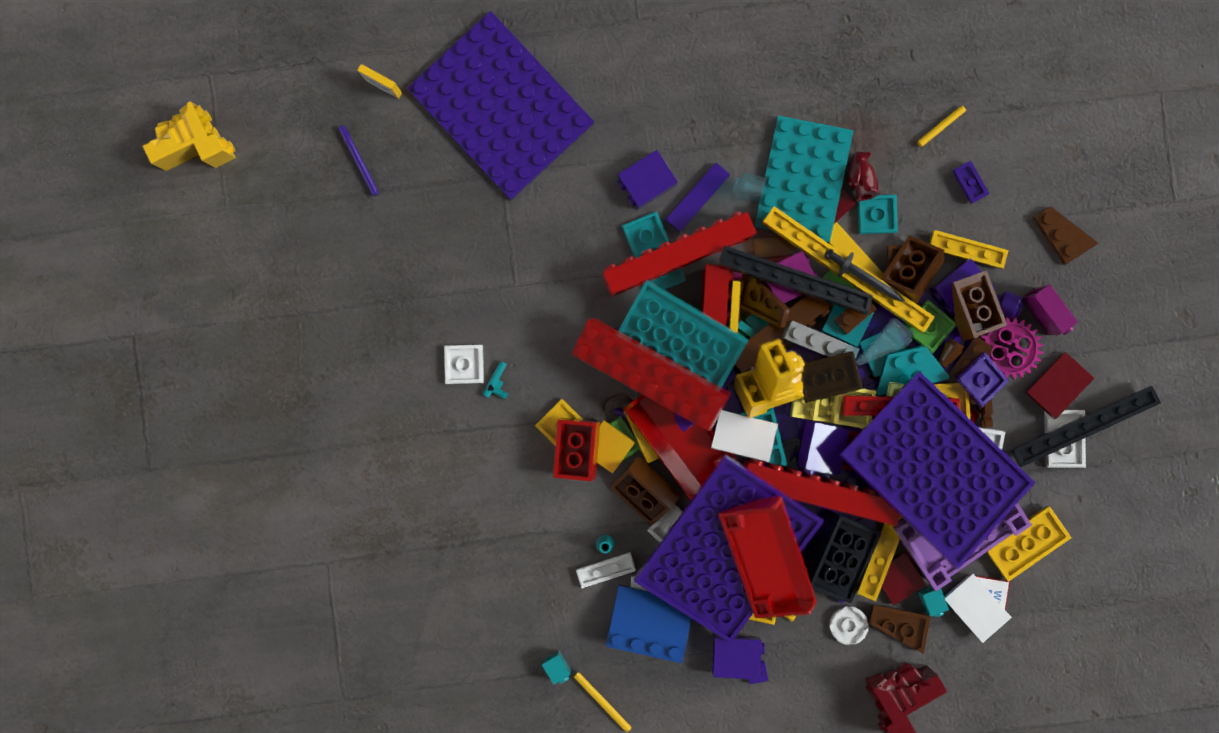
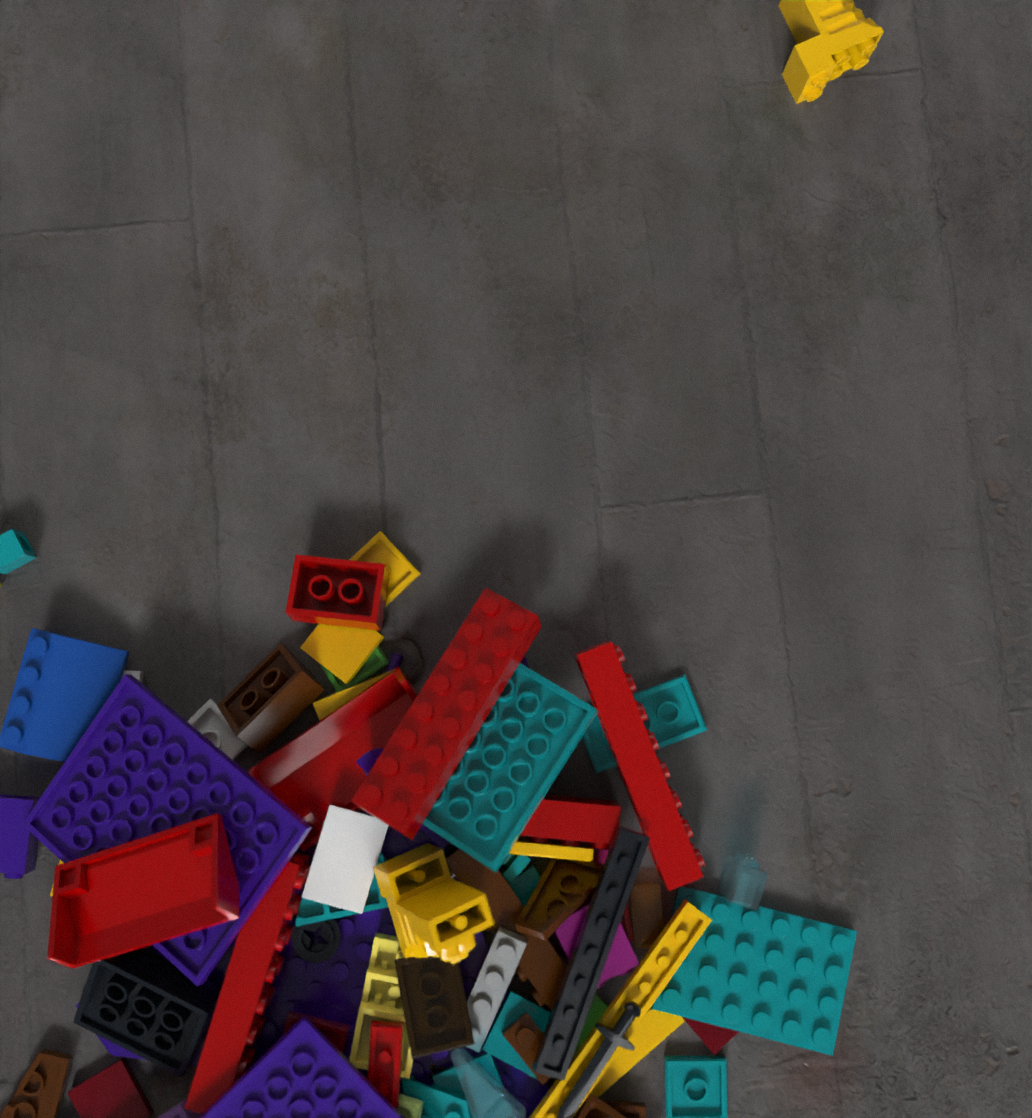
camera: 90 degrees right, 5 degrees down
(358, 160) = (790, 279): dark purple bar -> none
(379, 81) = (912, 311): yellow tile -> none
(463, 364) = (478, 426): white tile -> none
(496, 383) = (447, 475): teal hose -> none
(500, 105) = (874, 495): dark purple plate -> none
(605, 539) = (197, 635): teal cone -> none
(605, 570) = (153, 632): white tile -> none
(646, 180) = (756, 716): dark purple brick -> none
(697, 197) = (727, 796): dark purple tile -> none
(821, 449) = (319, 985): dark purple brick -> none
(848, 625) = (42, 1016): white tile -> none
(863, 177) = (756, 1068): dark red animal -> none
(879, 563) = (131, 1071): yellow plate -> none

